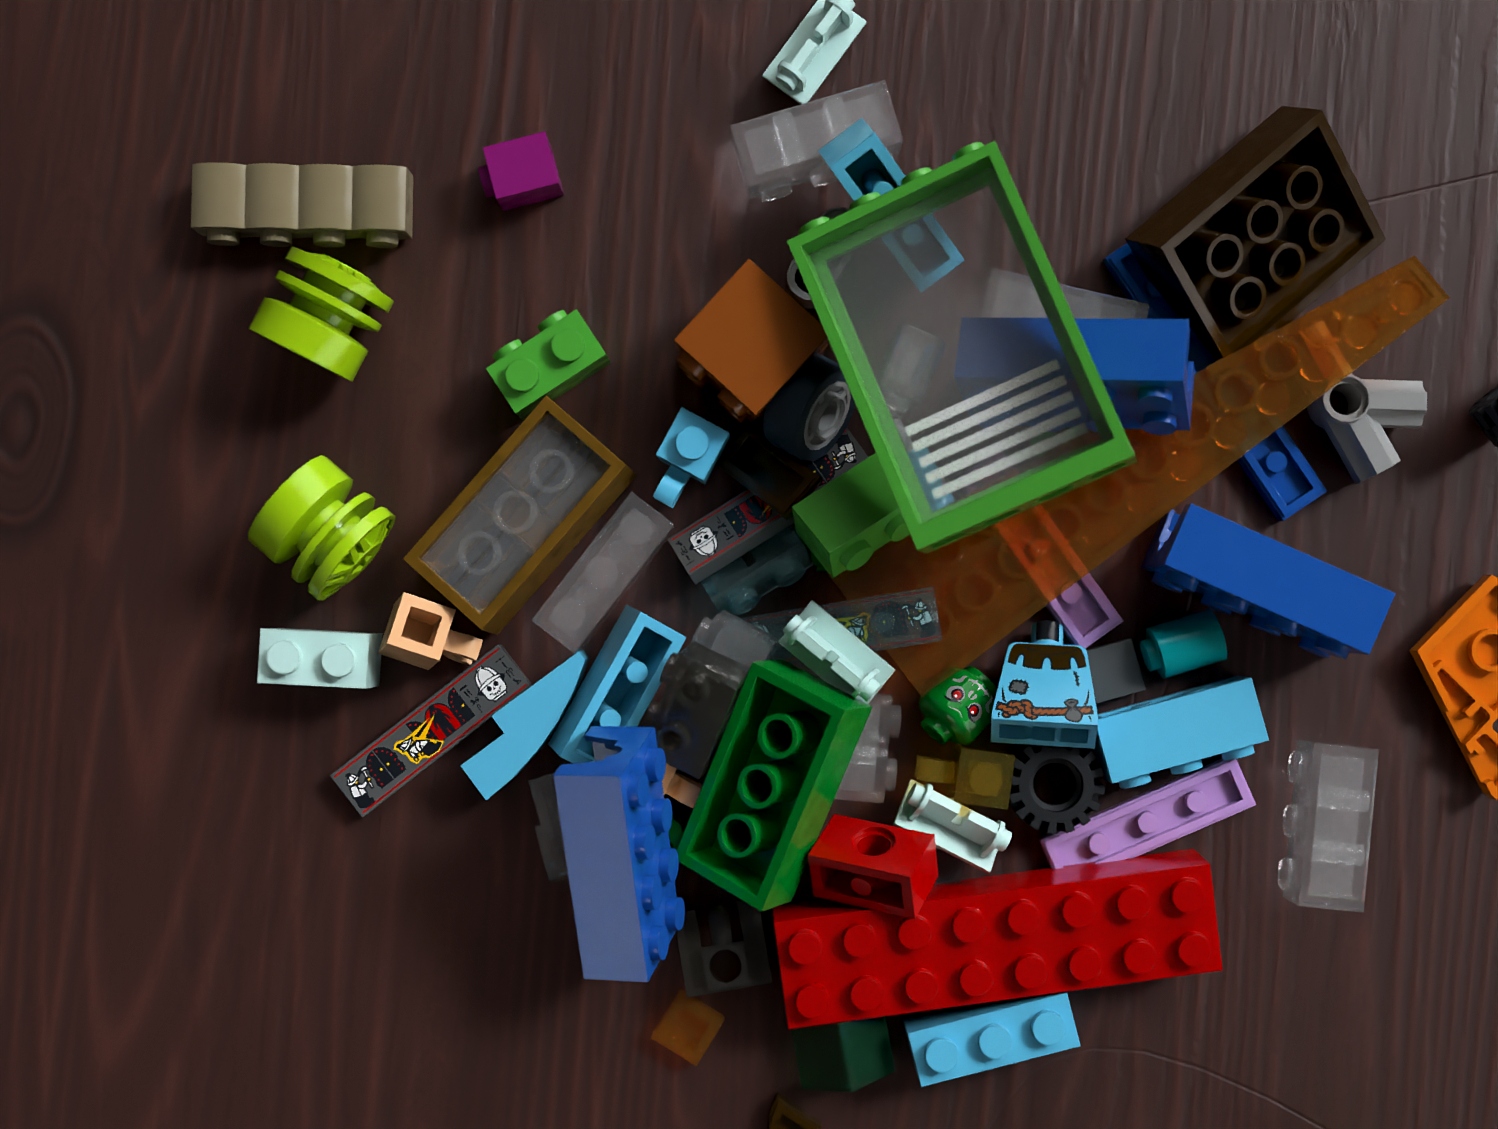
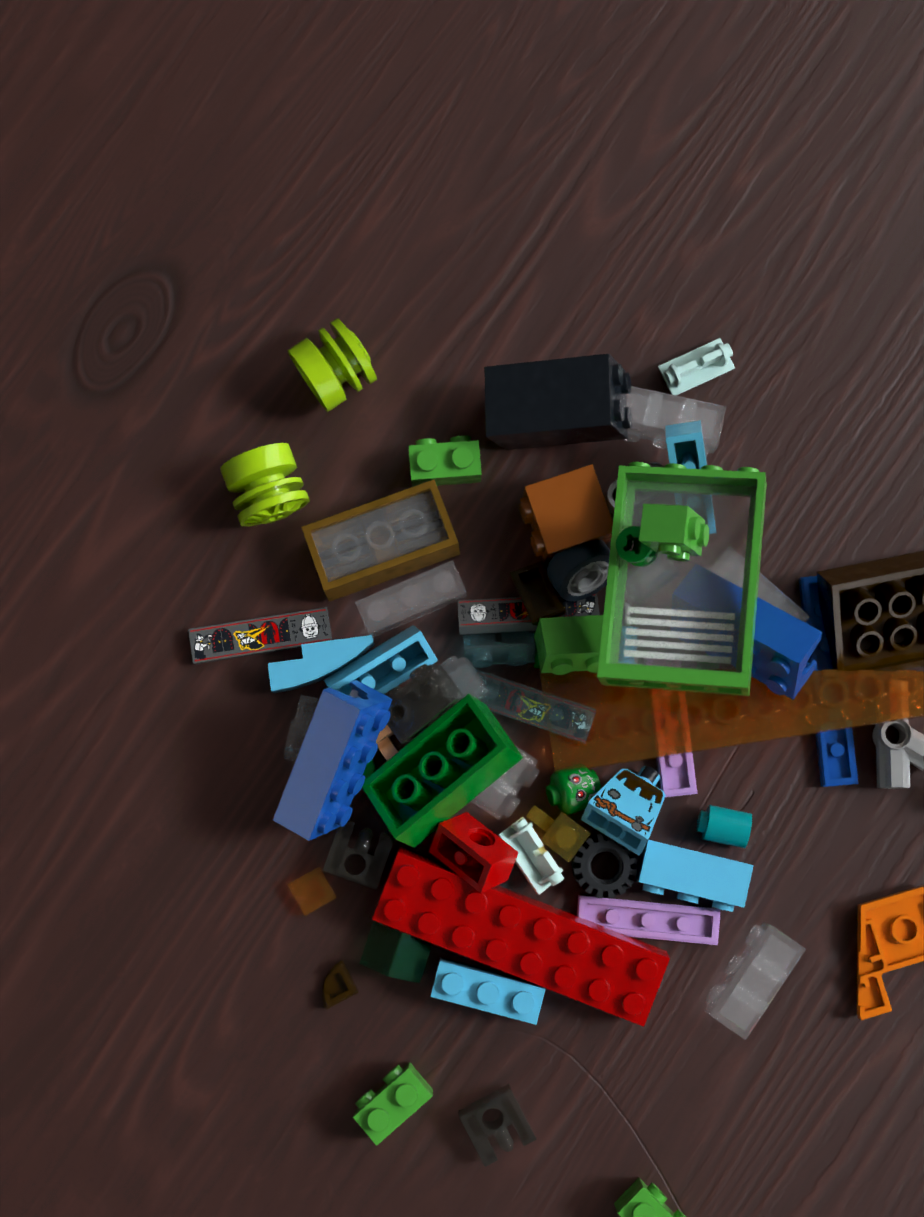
camera: 25 degrees right, 5 degrees down
(302, 202) = (355, 295): dark tan brick -> none
(319, 658) = (221, 558): light aqua brick -> none
(421, 633) = (287, 576): light nougat brick -> none
(520, 171) = (488, 345): magenta brick -> none
(654, 198) = (557, 402): none -> black brick
(690, 451) = (498, 556): medium azure brick -> none
(835, 653) = (518, 716): light aqua hinge -> none
(885, 344) = (641, 554): none -> green wheel
(915, 292) = (673, 531): none -> bright green brick
(1114, 670) = (675, 819): dark grey tile -> none
(1268, 581) = (792, 814): blue brick -> none

